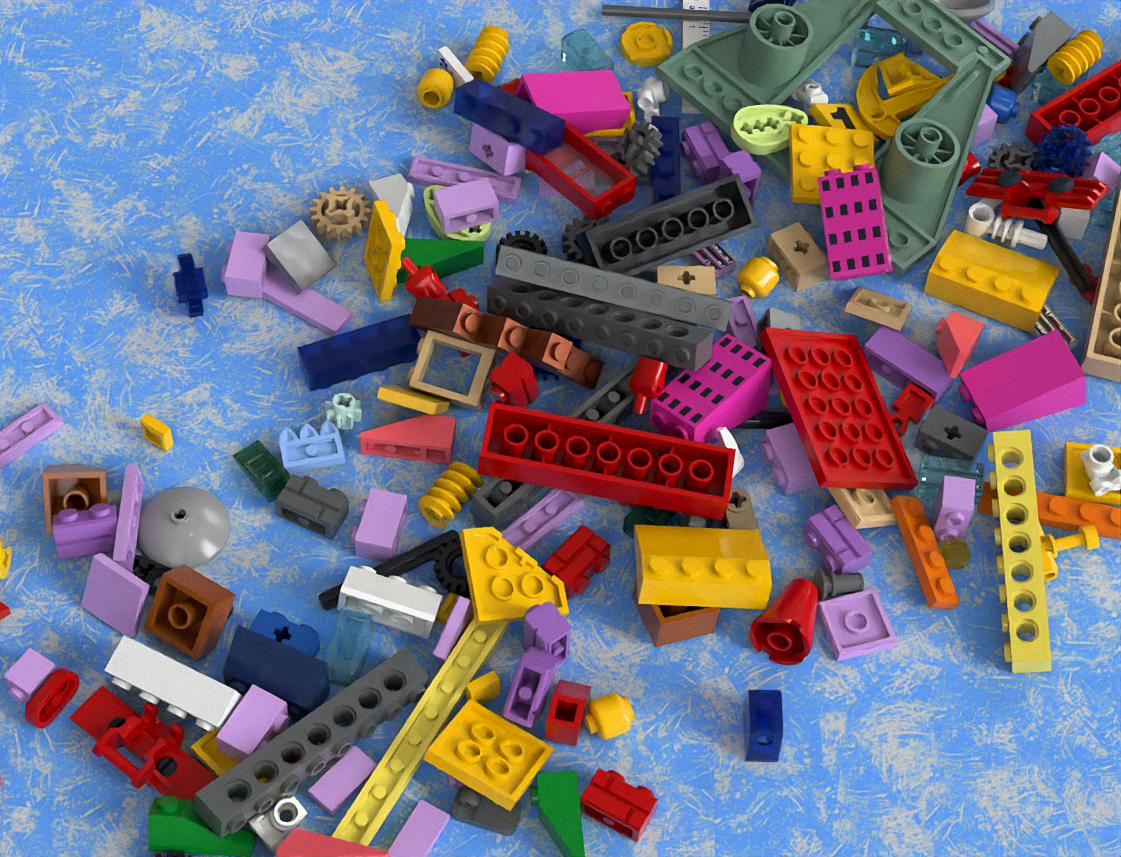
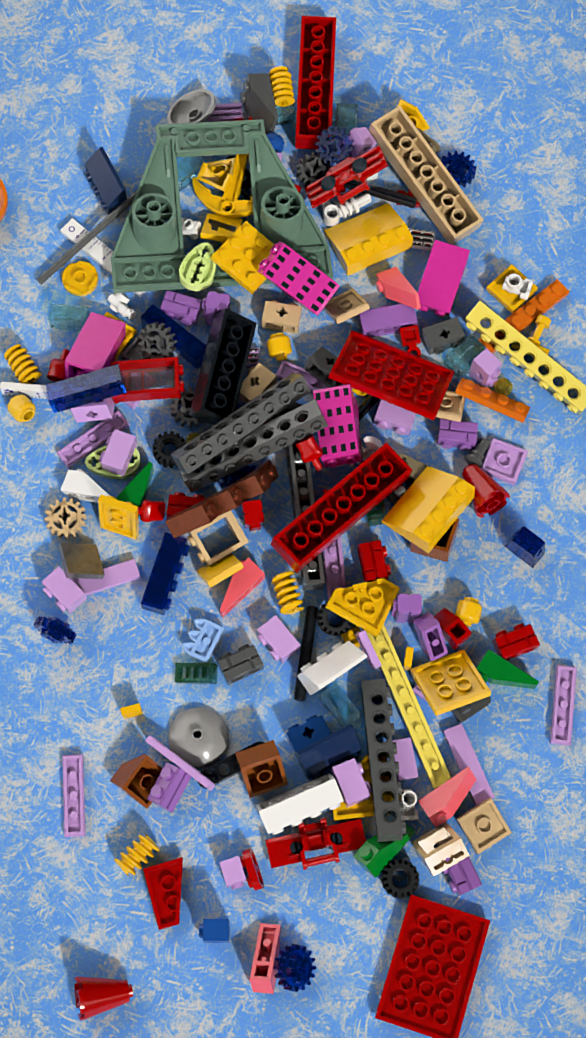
camera: 50 degrees left, 15 degrees up
(115, 595) = (221, 799): lavender tile -> none
(343, 411) = (195, 608): light aqua gear -> none

